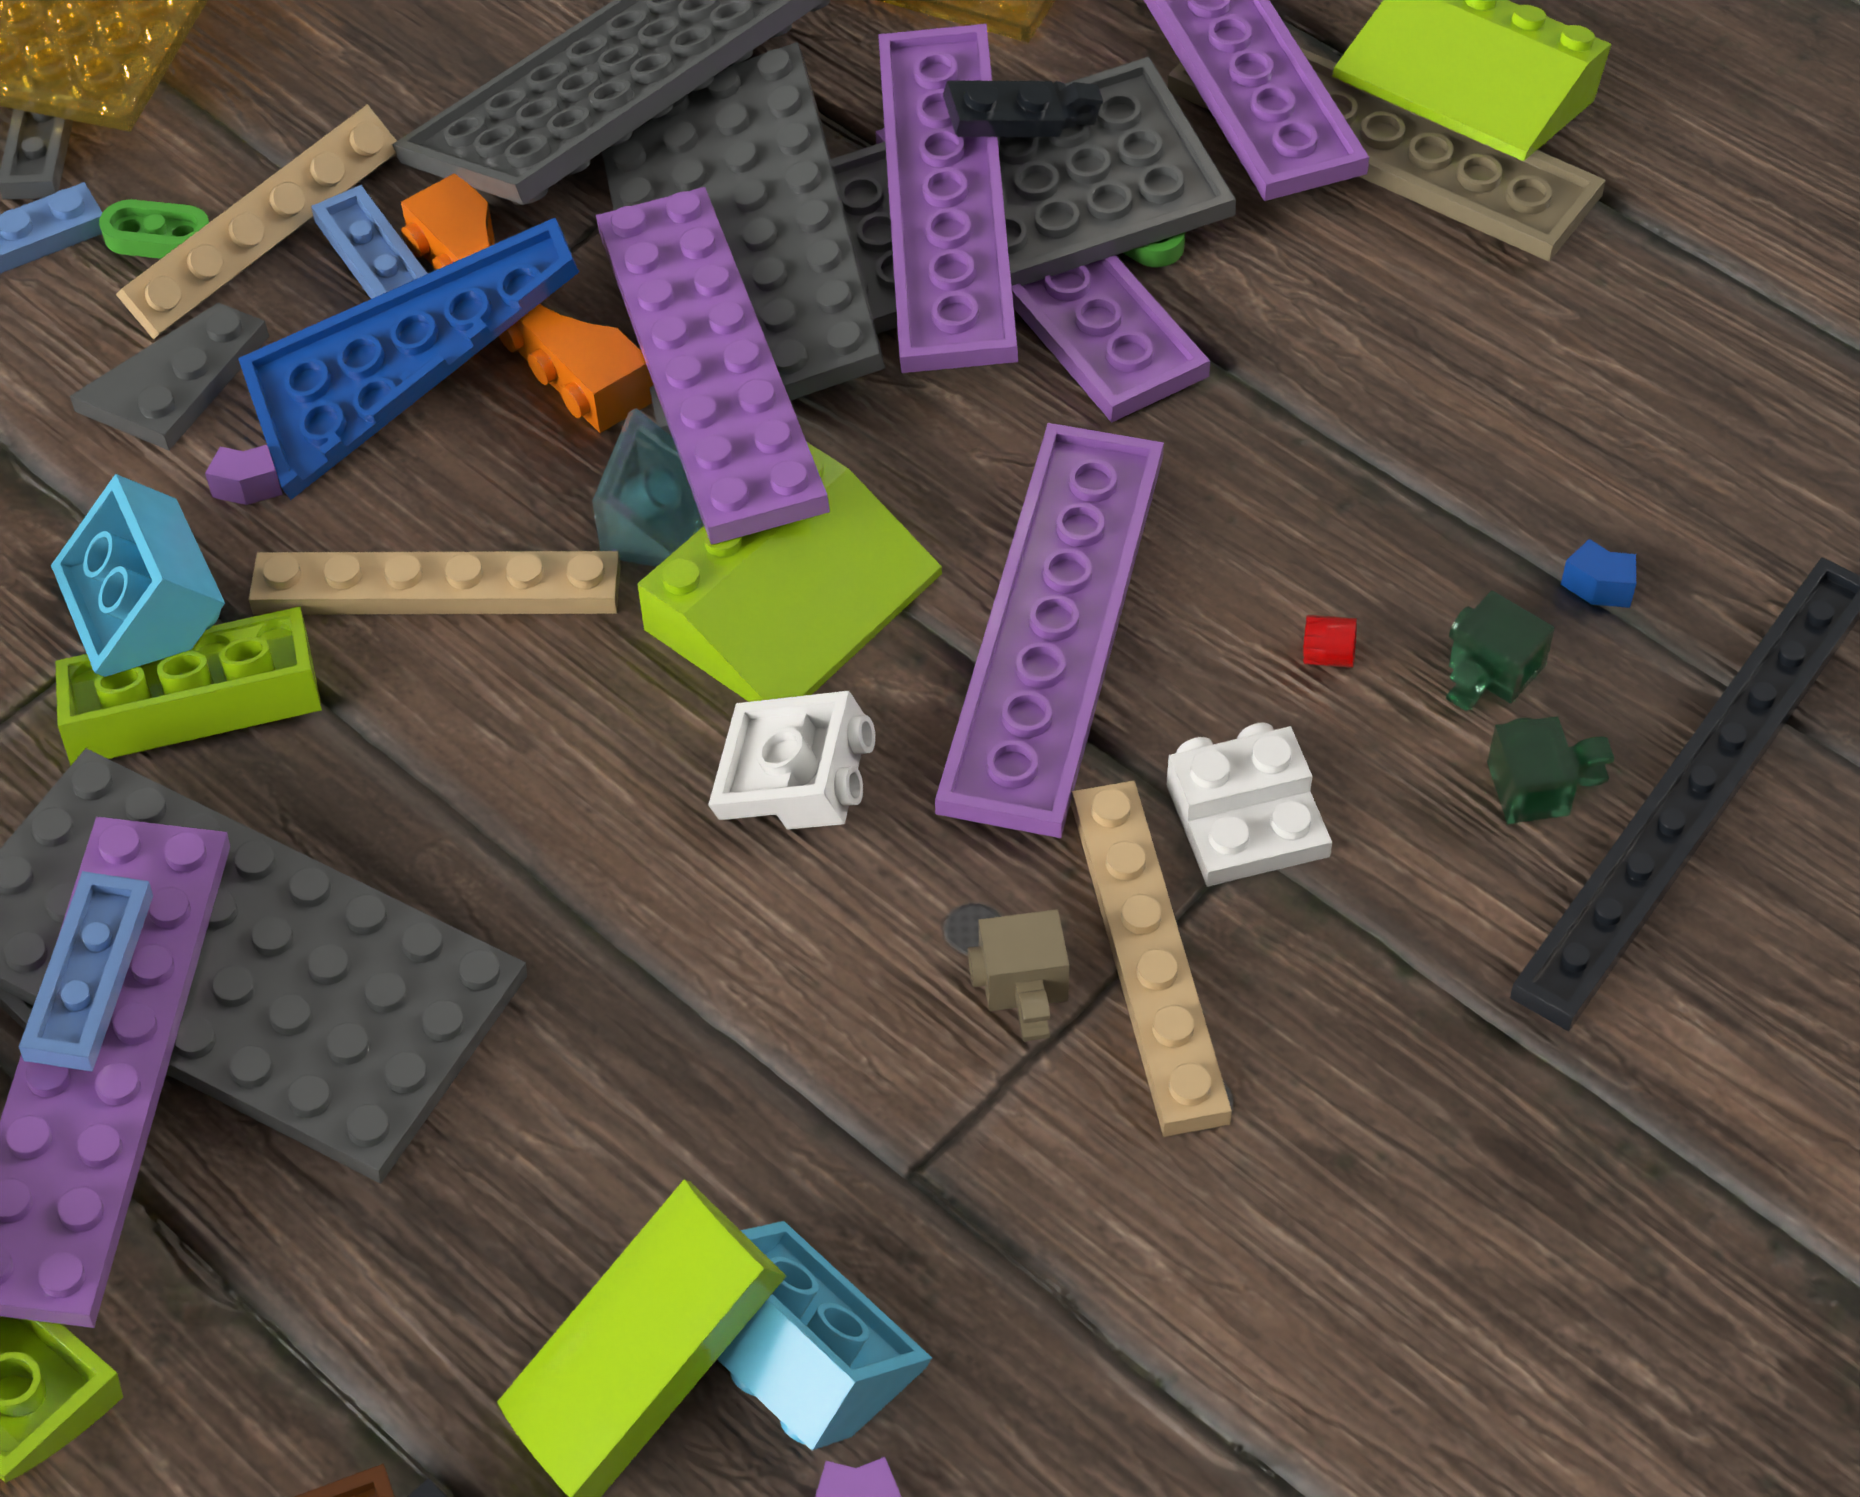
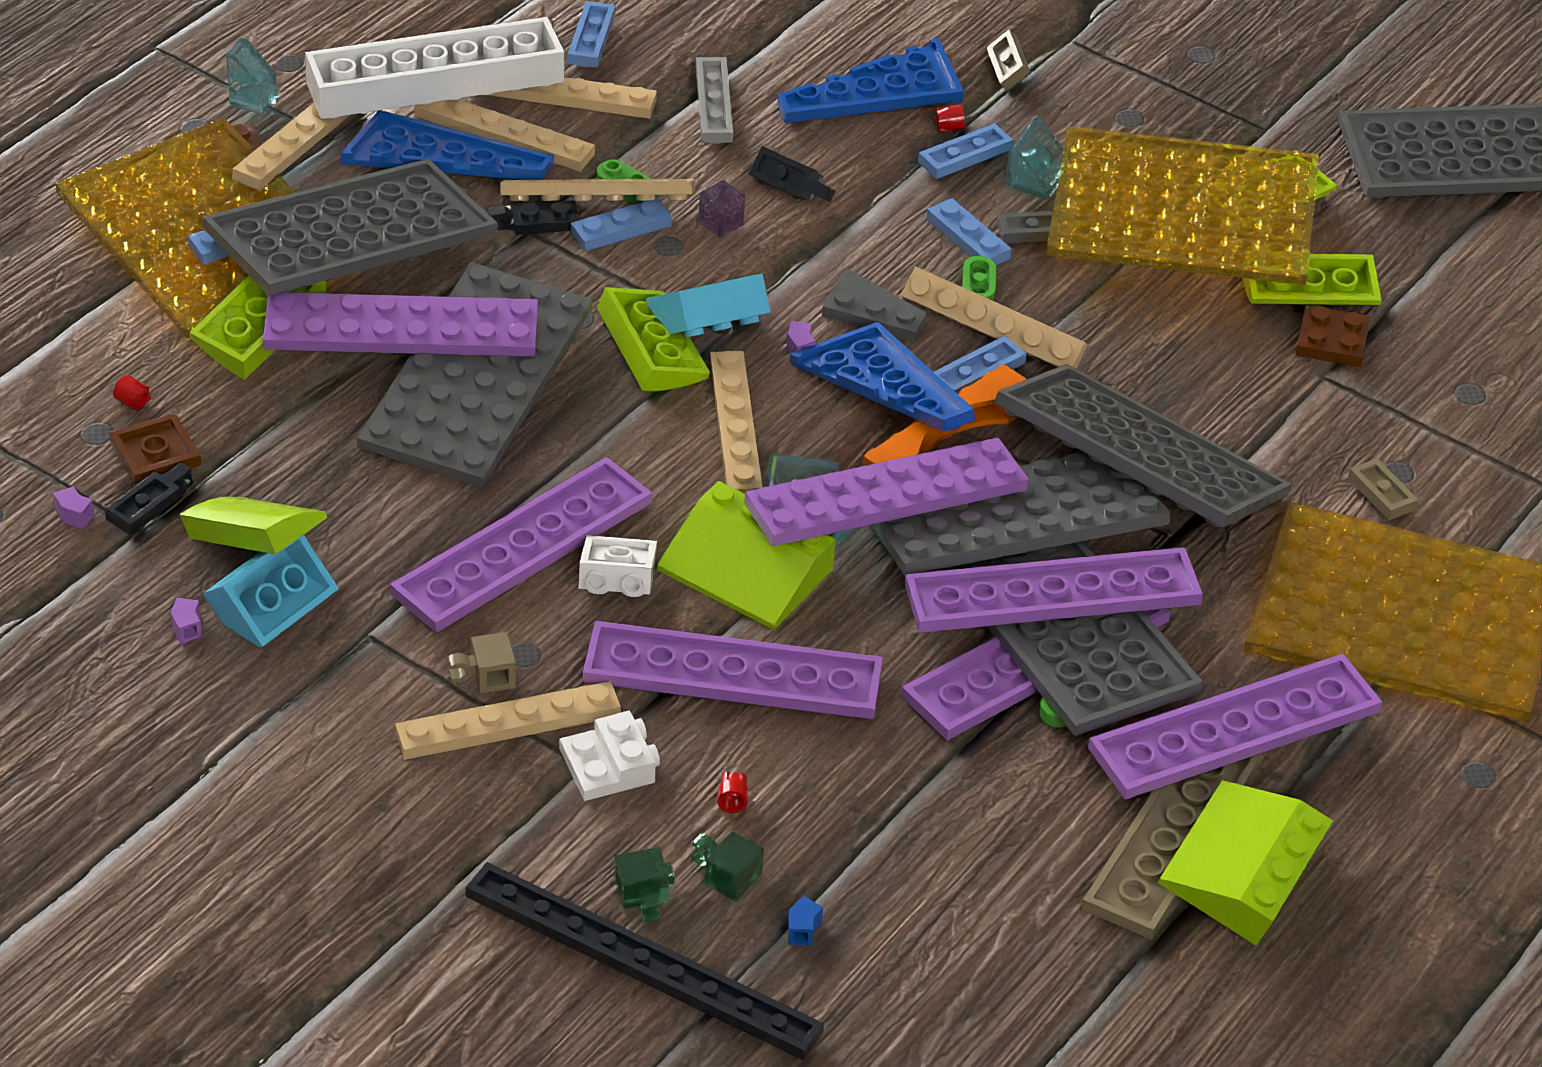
camera: 80 degrees right, 10 degrees down
(86, 971) = (435, 300): medium blue plate -> none
(718, 914) = (520, 544): none -> medium lavender plate
(1020, 107) = (1122, 608): black hinge -> none

